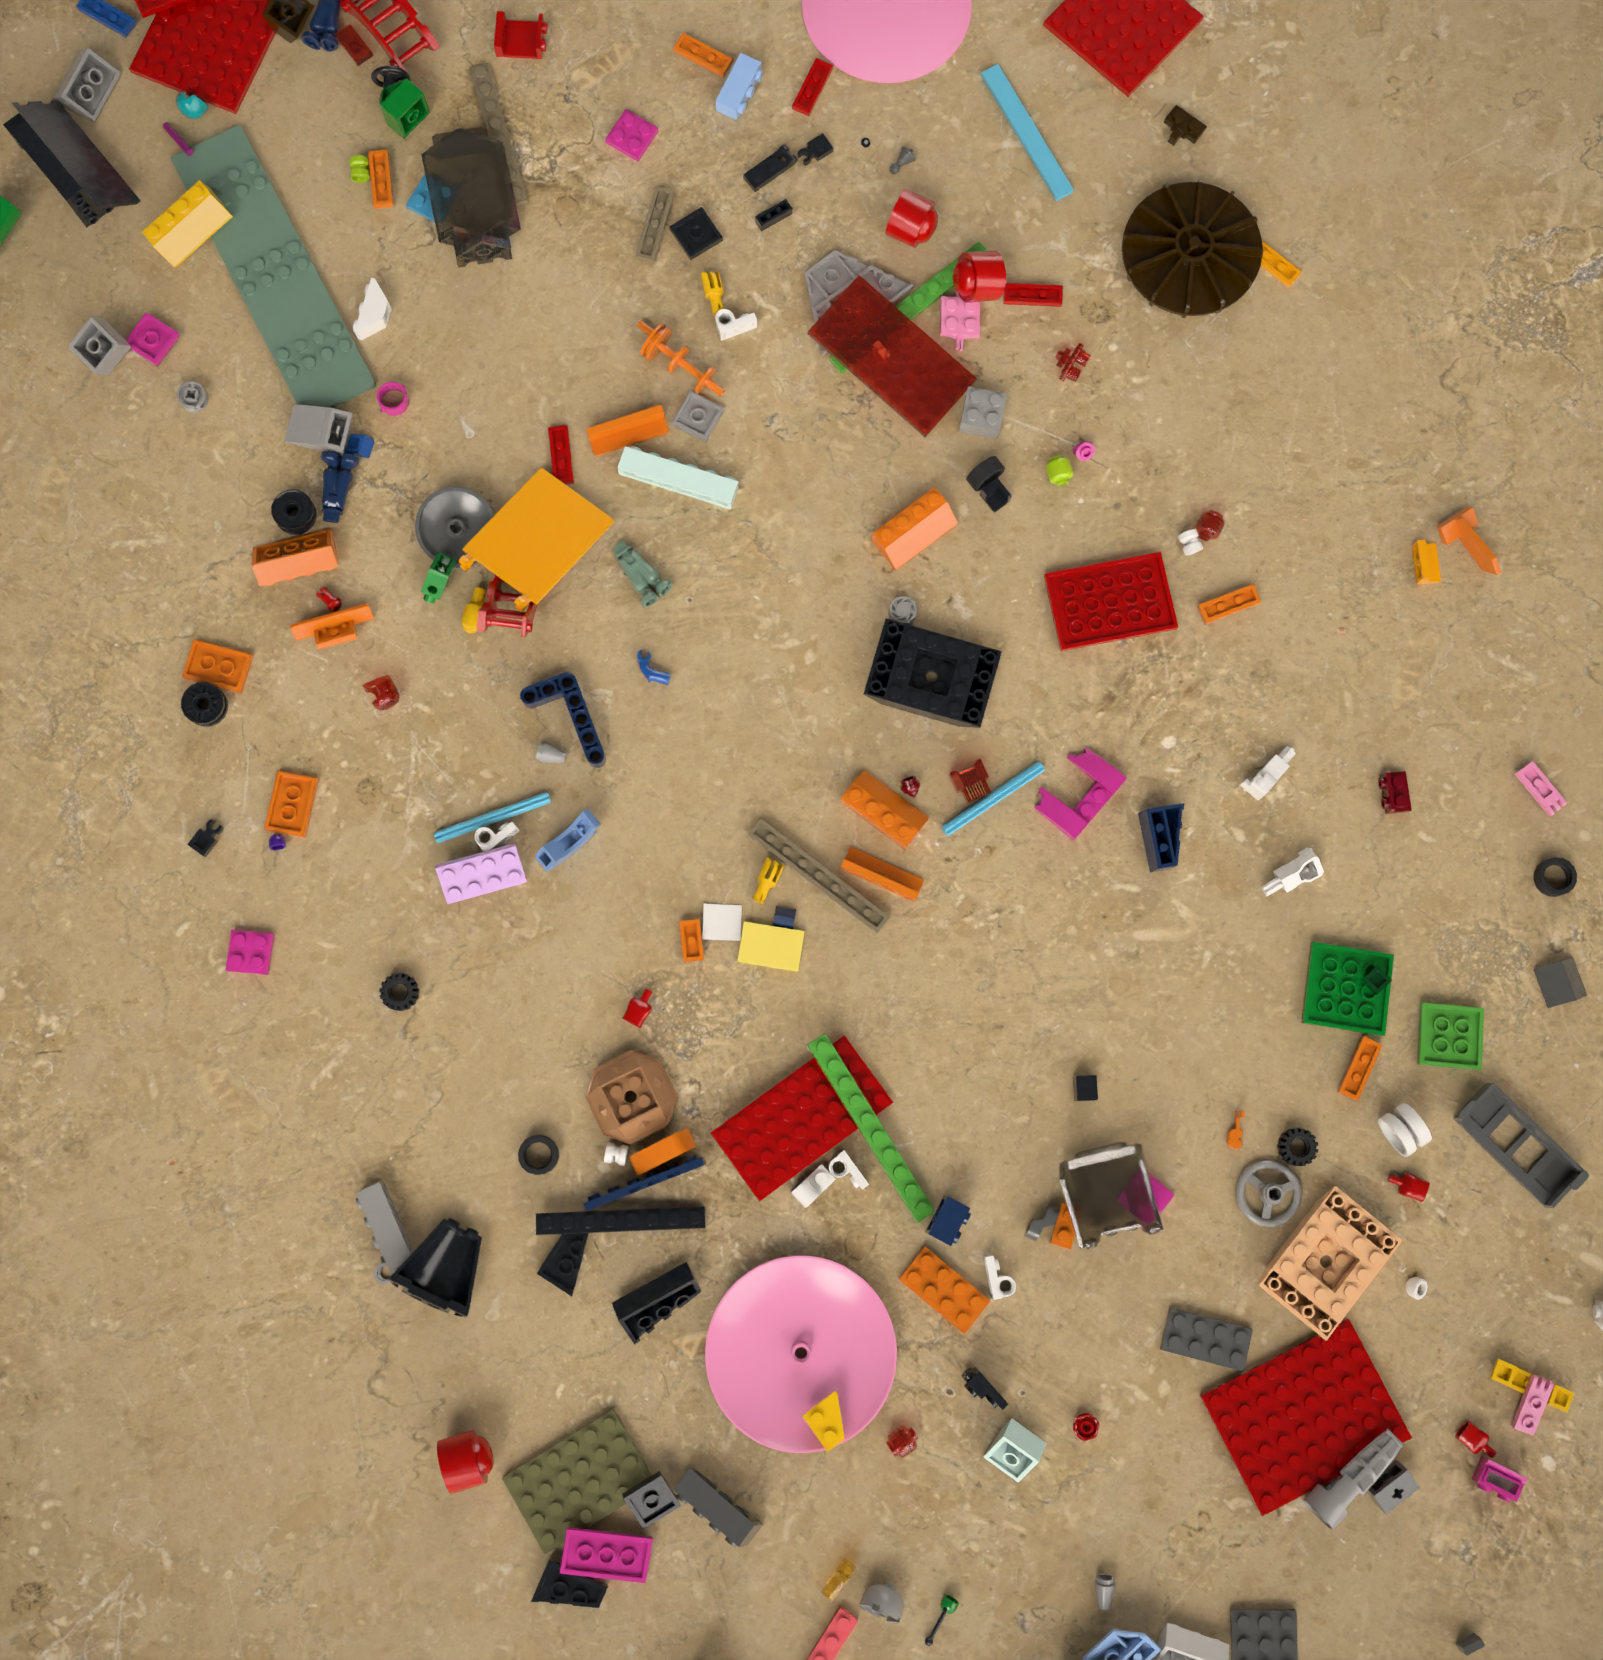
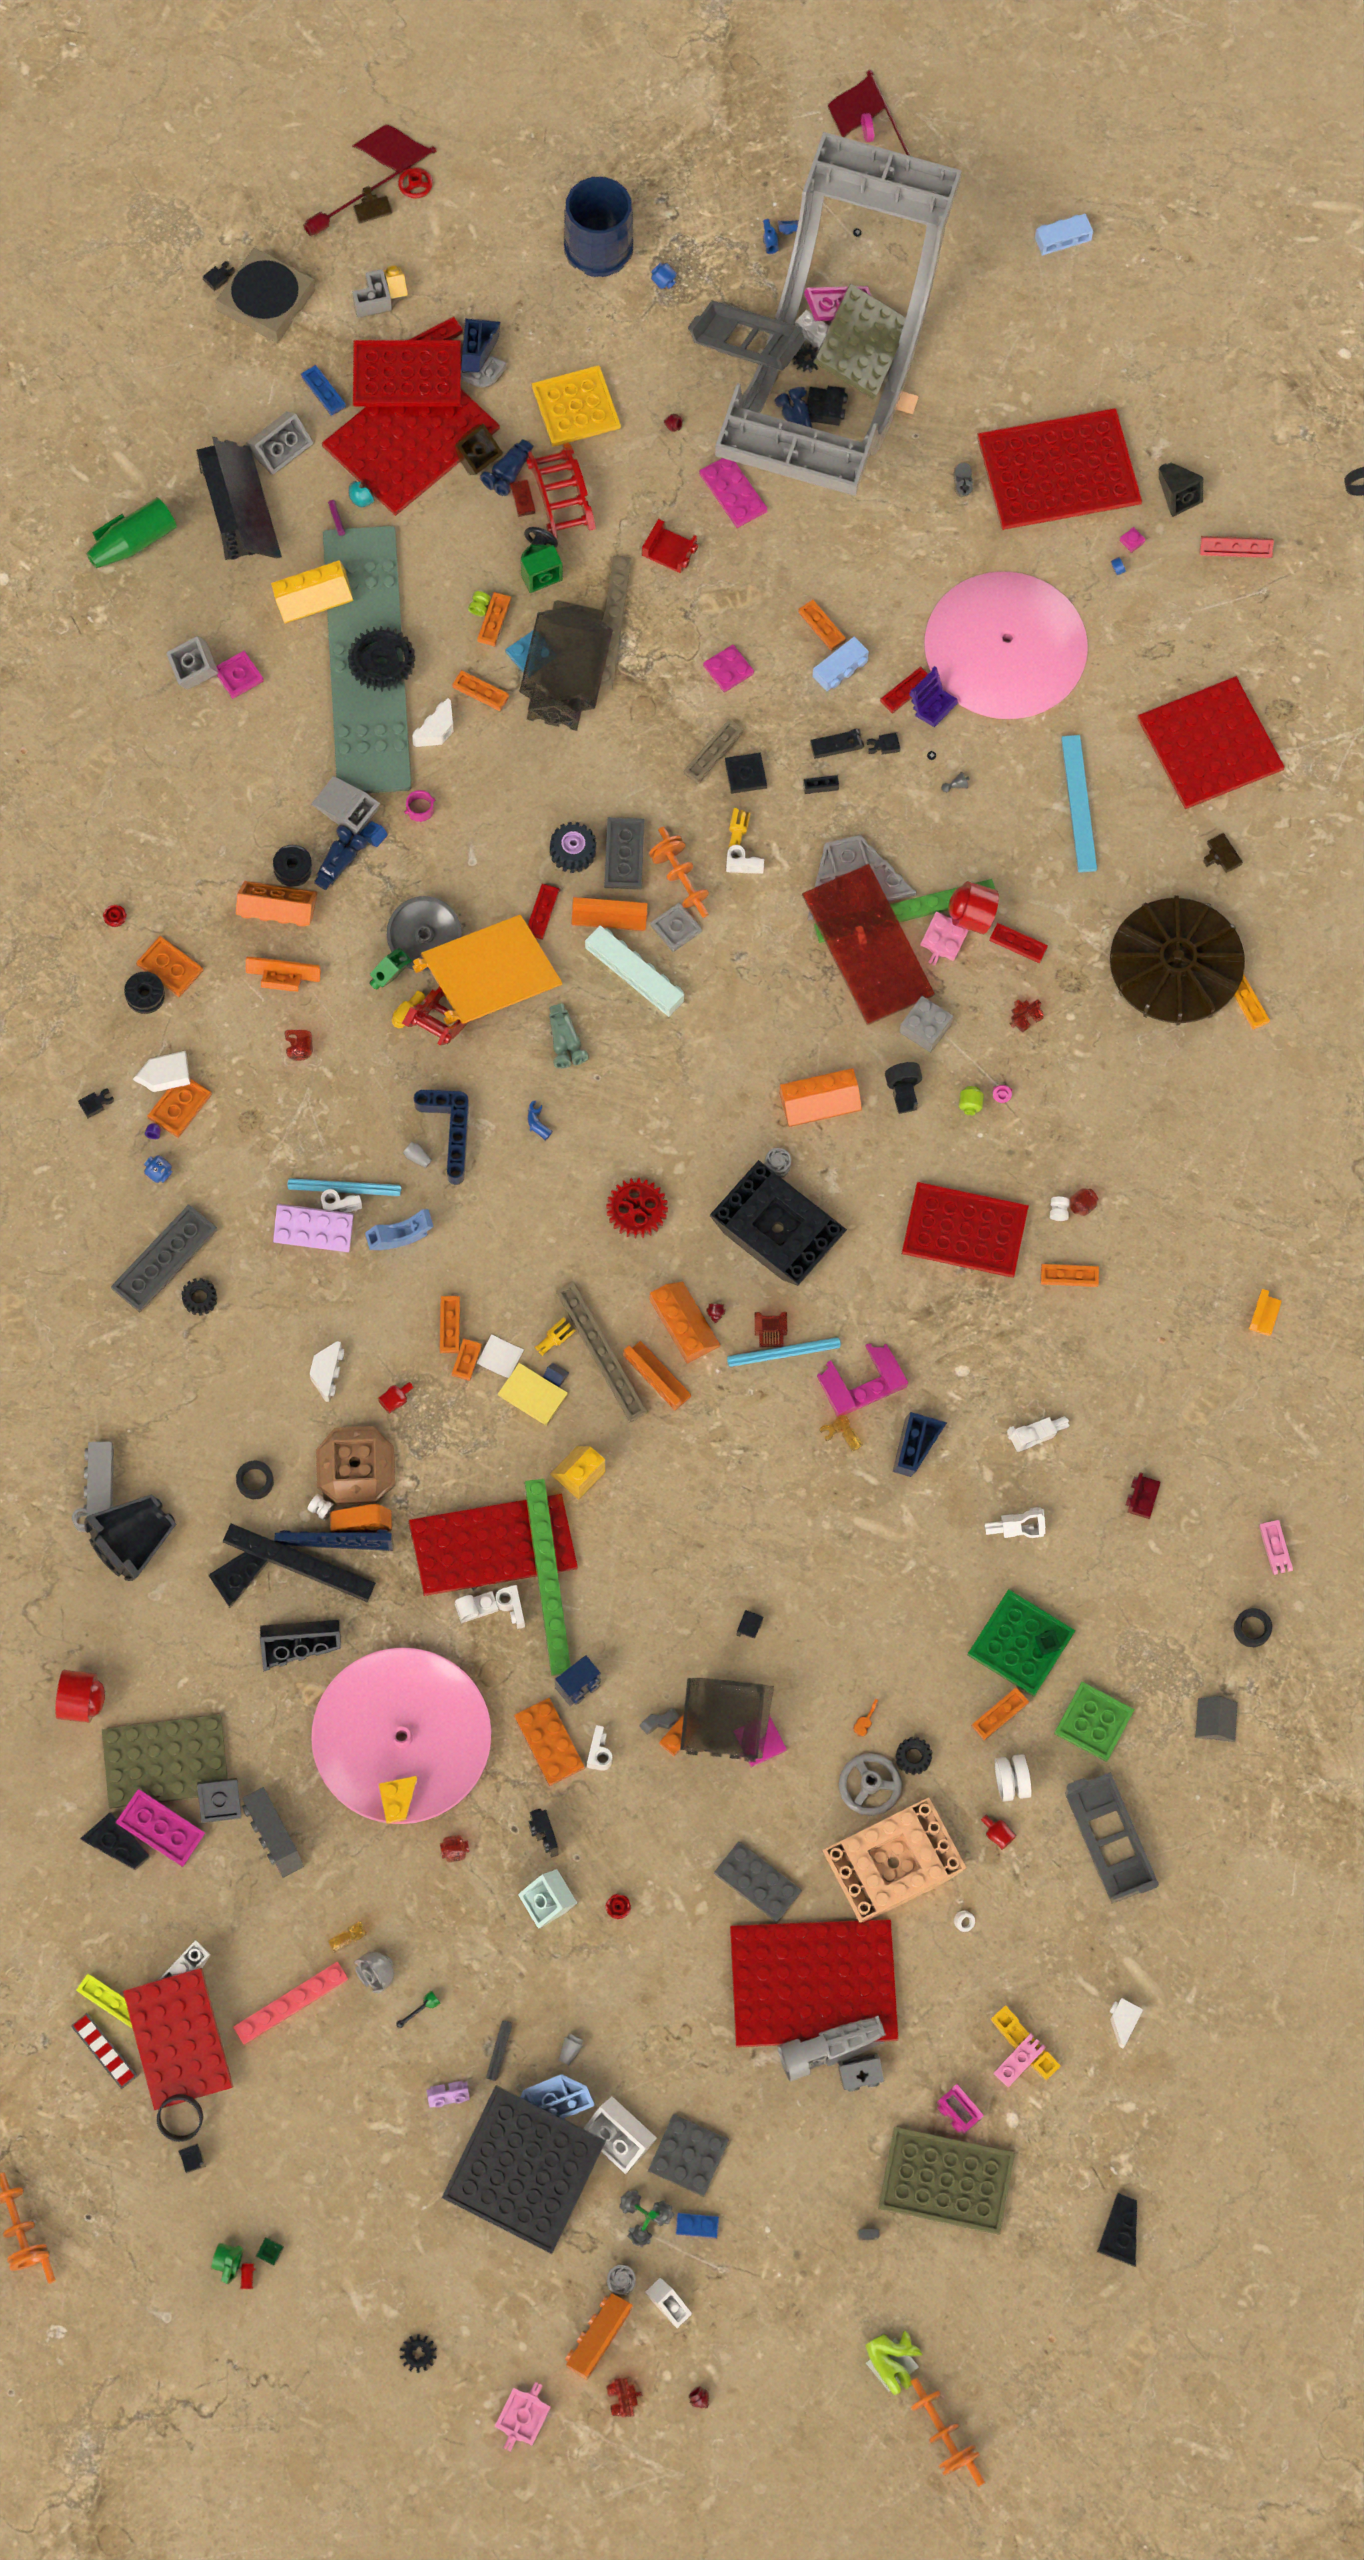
camera: 25 degrees right, 10 degrees down
(133, 635) = (111, 911): none -> red plate
(192, 396) = (250, 735): light grey wheel -> none
(249, 952) = (88, 1212): dark pink plate -> none
(261, 777) = (164, 1072): none -> white tile
(285, 250) = (384, 647): none -> black gear
(299, 879) = (157, 1169): none -> blue head
(333, 603) = (289, 950): red pin -> none
(346, 968) = (164, 1258): none -> dark grey plate
(400, 256) = (480, 690): none -> orange plate
(558, 1012) = (326, 1369): none -> white slope
(562, 378) = (573, 847): none -> black wheel
(614, 363) = (624, 853): none -> dark grey plate
(659, 912) = (449, 1324): none -> orange plate
(784, 733) = (646, 1194): none -> red gear
(843, 88) = (930, 700): none -> dark purple plate
(850, 1005) = (580, 1470): none -> yellow slope
(912, 219) = (938, 835): red piece -> none
(1036, 1624) = (499, 2050): none -> dark grey axle
(1082, 846) = (842, 1424): none -> clear yellow bar
(1461, 527) = (1309, 1294): orange piece -> none
(1474, 1439) = (954, 2068): red piece -> none
(1518, 1555) = (946, 2180): none -> olive plate

